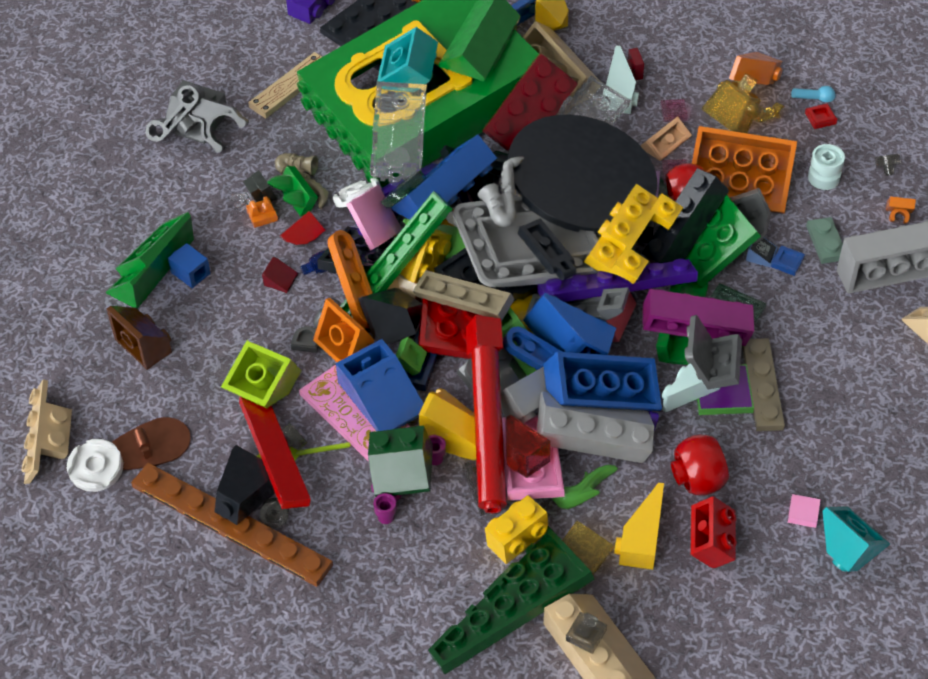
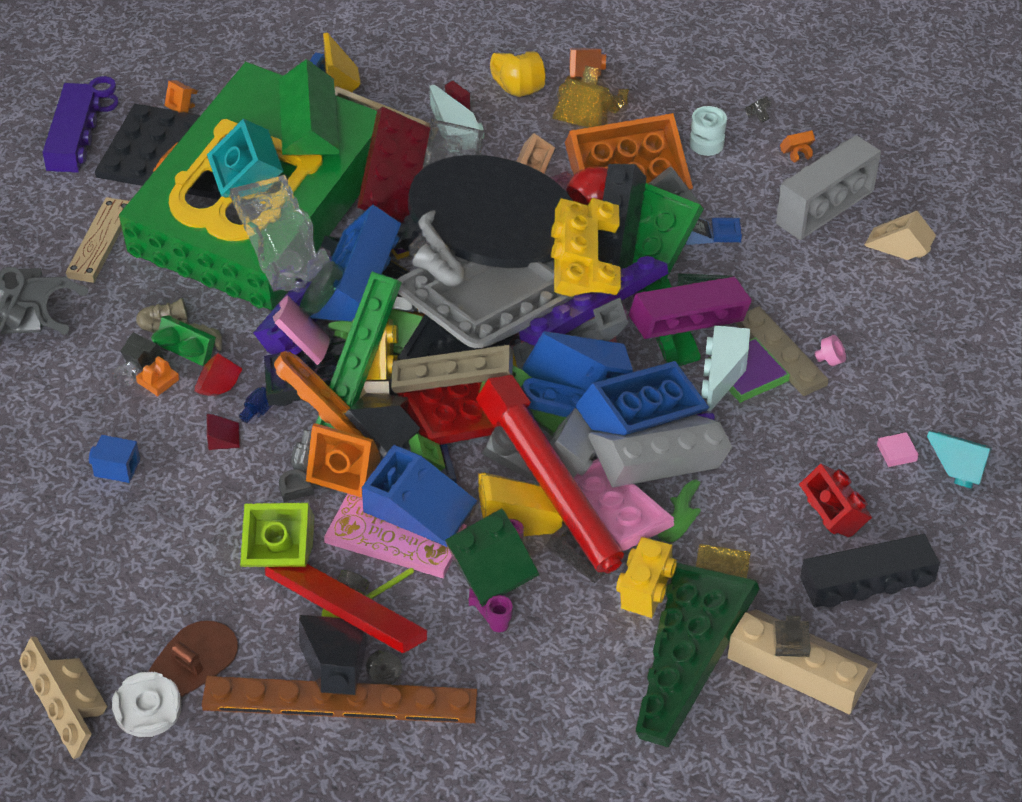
camera: 30 degrees left, 5 degrees down
(139, 335) = (109, 551): reddish brown slope -> none
(150, 262) = (64, 470): green slope -> none
(353, 191) = (254, 319): white tile -> none
(525, 448) = (608, 491): clear red slope -> none
(548, 249) = (516, 290): black hinge -> none
(640, 533) = (770, 536): yellow slope -> none
(673, 108) = (521, 129): clear pink tile -> none
(698, 60) = (518, 74): none -> yellow helmet
(700, 465) = (783, 443): red wheel -> none
(704, 604) = (869, 571): none -> black brick
(713, 359) = (743, 334): dark grey bracket -> none
(803, 402) = (831, 351): none -> bright pink tile
(821, 116) = (666, 88): red tile -> none
(824, 94) = (655, 67): medium azure bar -> none
(825, 239) = (749, 198): sand green plate -> none

